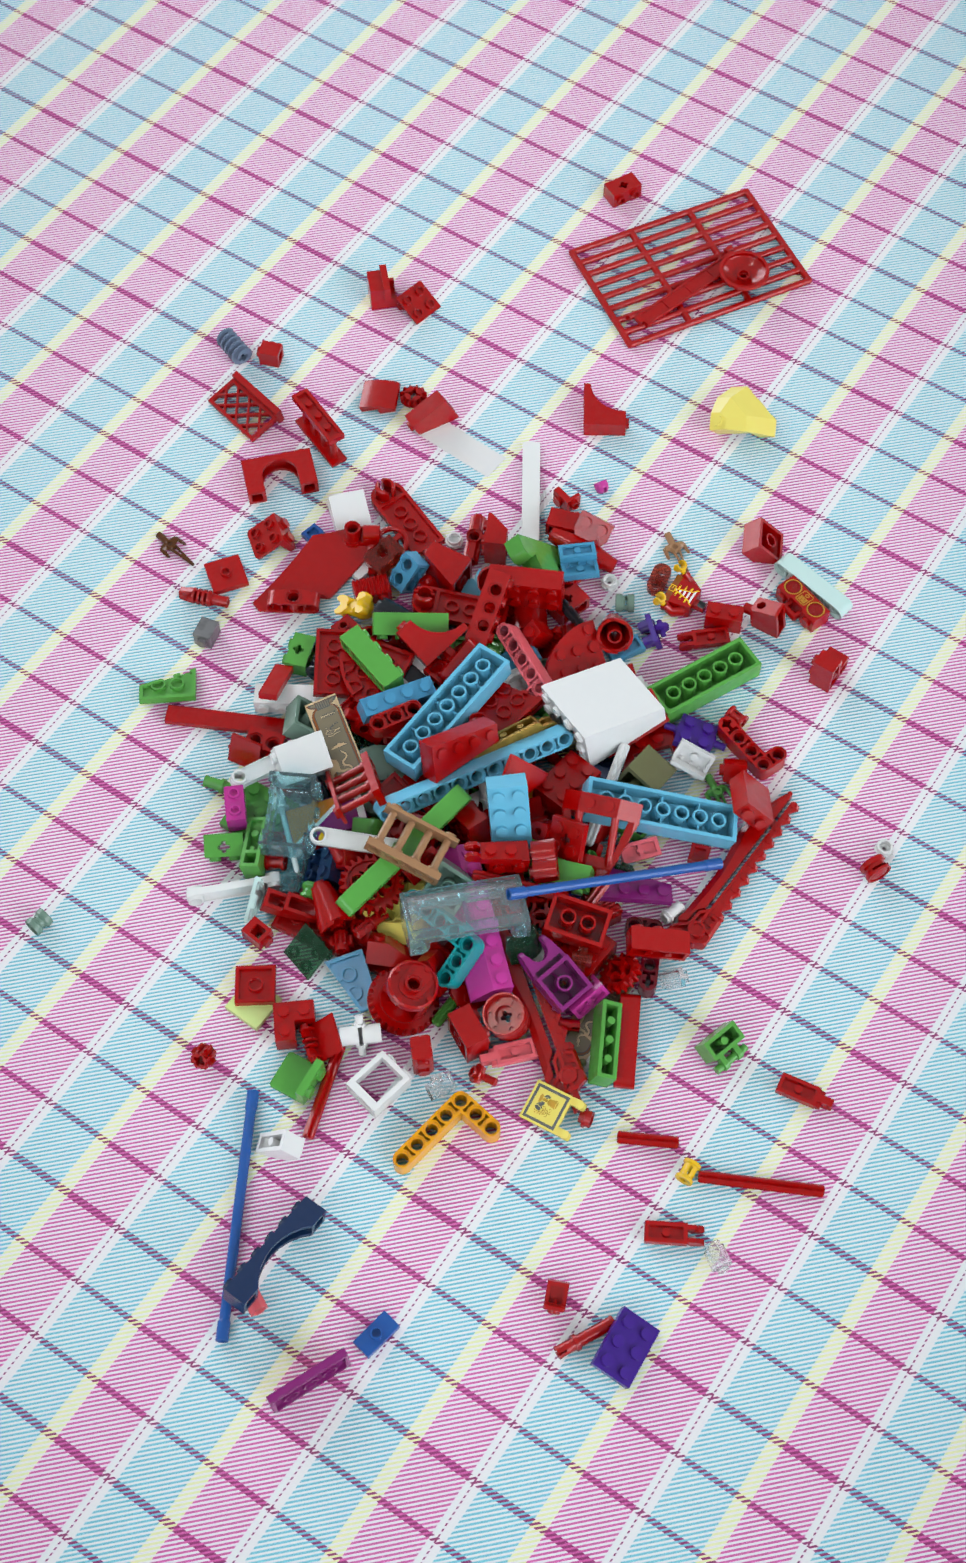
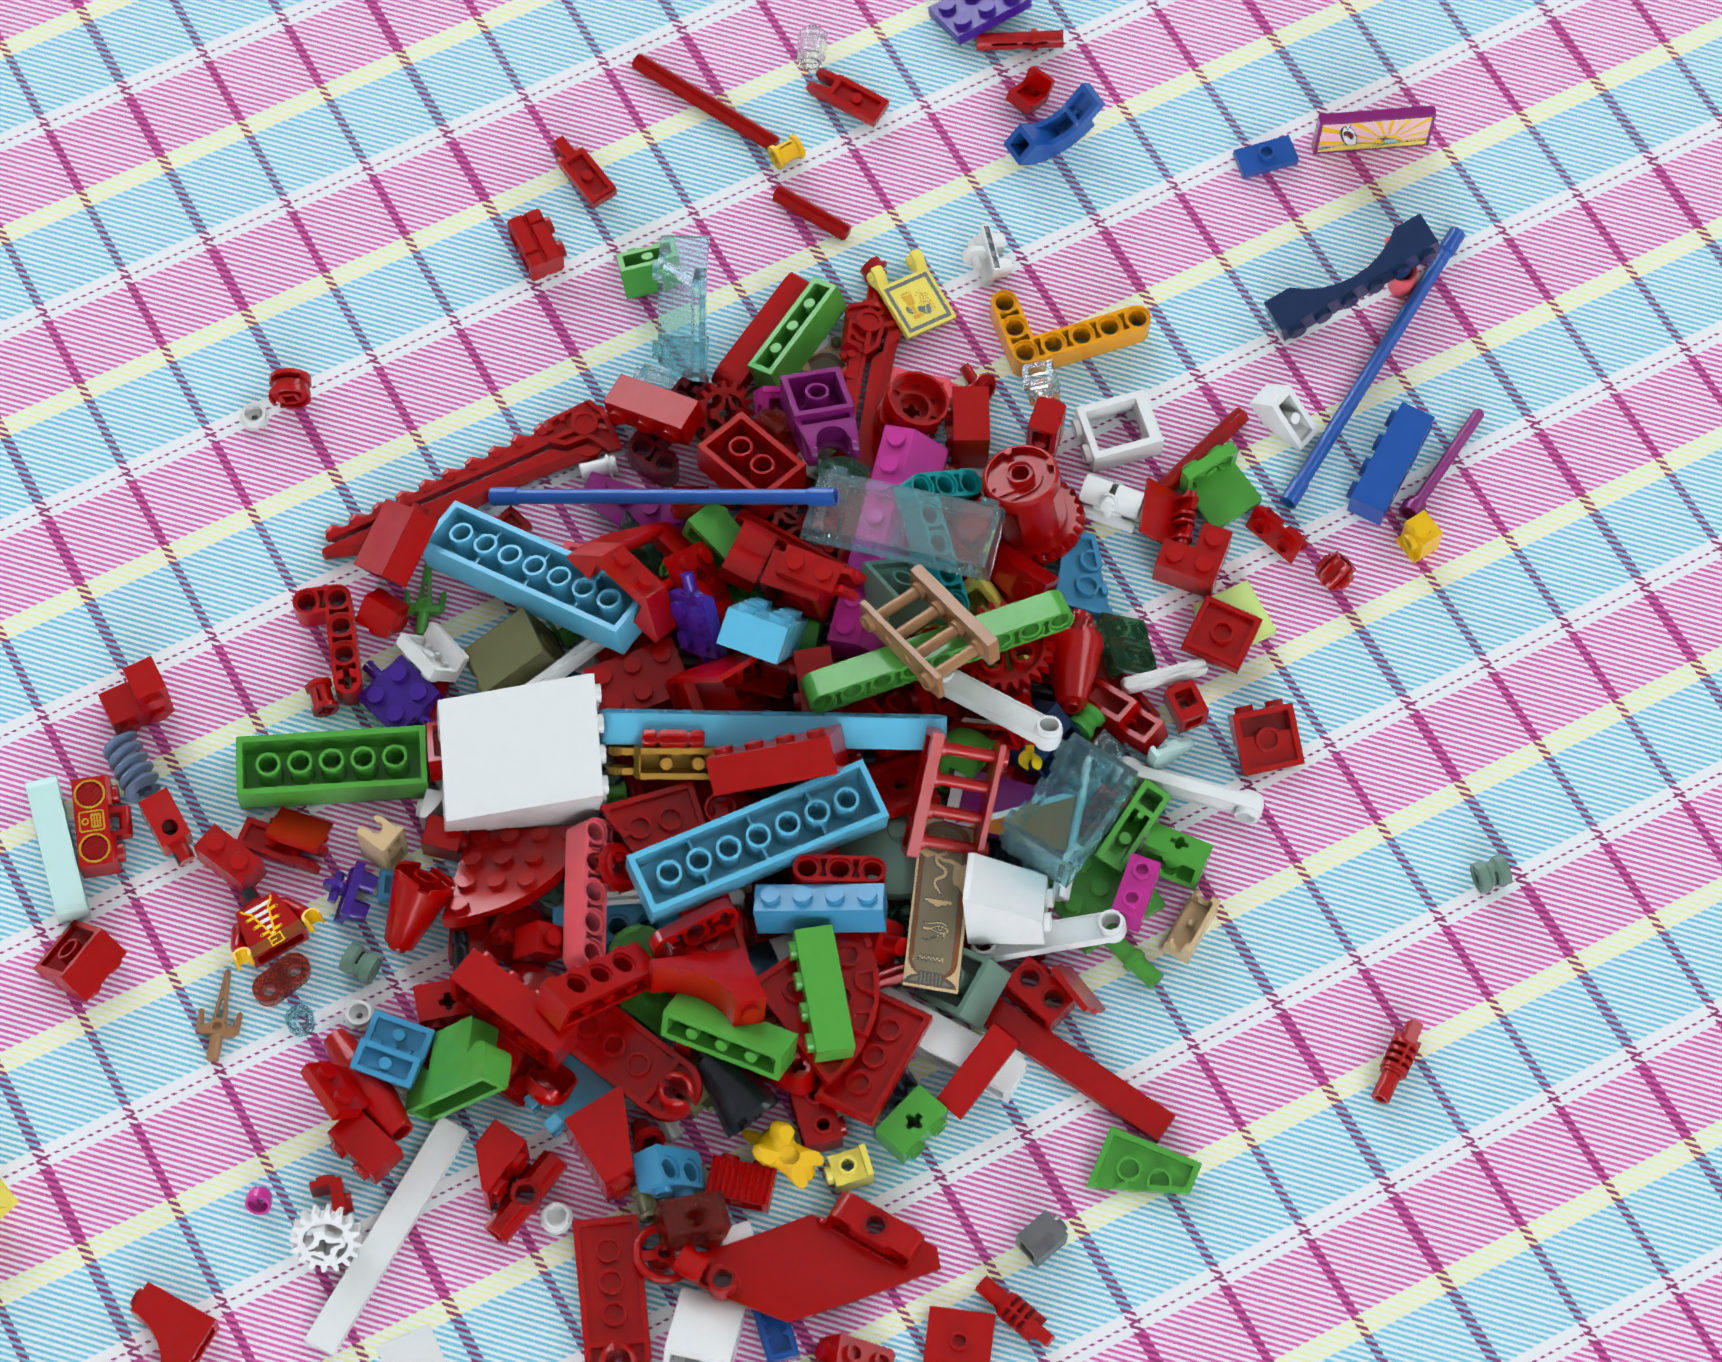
camera: 155 degrees left, 5 degrees up
(54, 800) = (1397, 1060): none -> red hinge
(160, 1105) = (1419, 536): none -> yellow brick
(172, 1125) = (1417, 503): none -> magenta piece
(198, 1146) = (1390, 463): none -> blue brick
(199, 816) = (1190, 927): none -> tan hinge
(202, 937) = (1266, 737): none -> red plate
(242, 1066) = (1270, 529): none -> red hinge
(278, 945) = (1164, 676): none -> white axle
(320, 619) = (859, 1176): none -> light yellow brick
(513, 1156) = (983, 255): none -> white hips
(518, 668) = (610, 855): none -> red gear
(523, 736) = (673, 738): none -> red axle
(525, 1270) = (1057, 133): none -> blue arch
(546, 800) = (696, 620): none -> dark purple plate
(556, 476) = (324, 1240): none -> white gear
(637, 563) = (293, 1014): none -> clear light blue bush
(651, 652) = (383, 848): none -> tan hinge
(676, 1000) = (682, 305): none -> clear light blue windscreen
(698, 644) = (298, 830): none -> red piece
(798, 1029) = (536, 244): none -> red brick
(806, 637) = (130, 768): none -> sand blue piece

